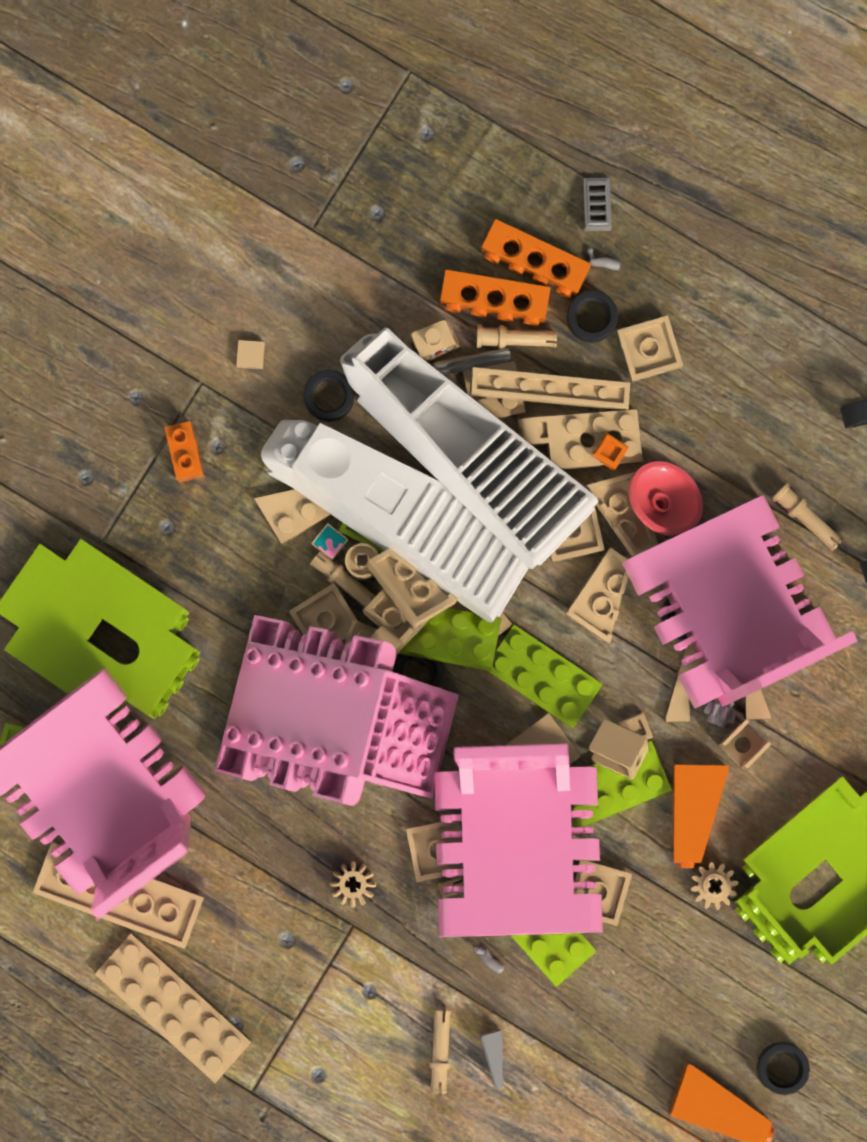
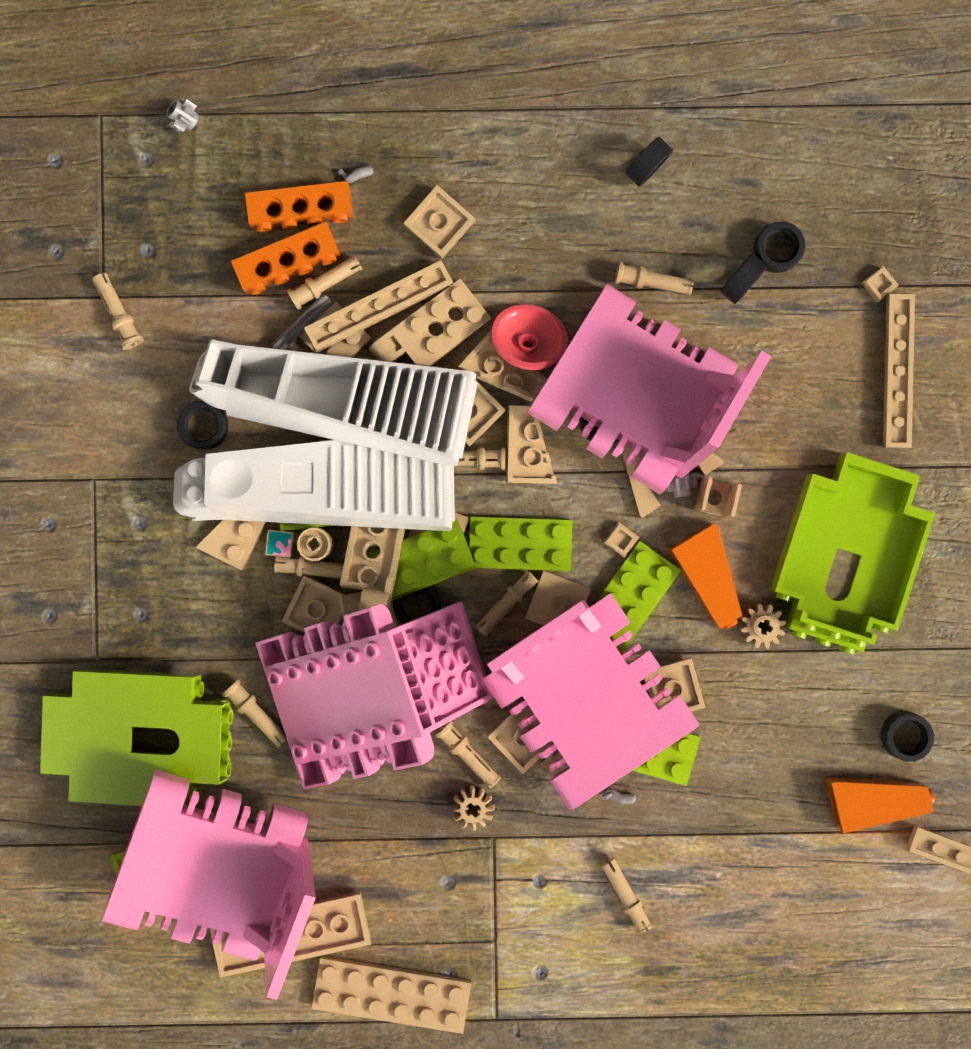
camera: 30 degrees left, 5 degrees up
(184, 451) = (114, 545): orange brick -> none
(210, 665) = (247, 704): none -> tan pin
(250, 354) = (118, 431): tan tile -> none
(316, 261) = (120, 320): none -> tan pin
(376, 822) = (460, 745): none -> tan pin
(410, 591) = (369, 546): tan wing -> none
(433, 341) = (259, 326): tan torso -> none
(482, 117) = (182, 115): none -> light grey gear
(493, 1051) = (667, 868): light grey slope -> none
(498, 721) = (506, 603): none -> tan pin
(555, 581) = (484, 458): none -> tan pin
(597, 225) = (332, 146): light grey slope -> none
(597, 296) = (364, 208): black tyre -> none
(610, 451) = (460, 327): orange tile -> none
(619, 749) = (619, 566): tan piece -> none

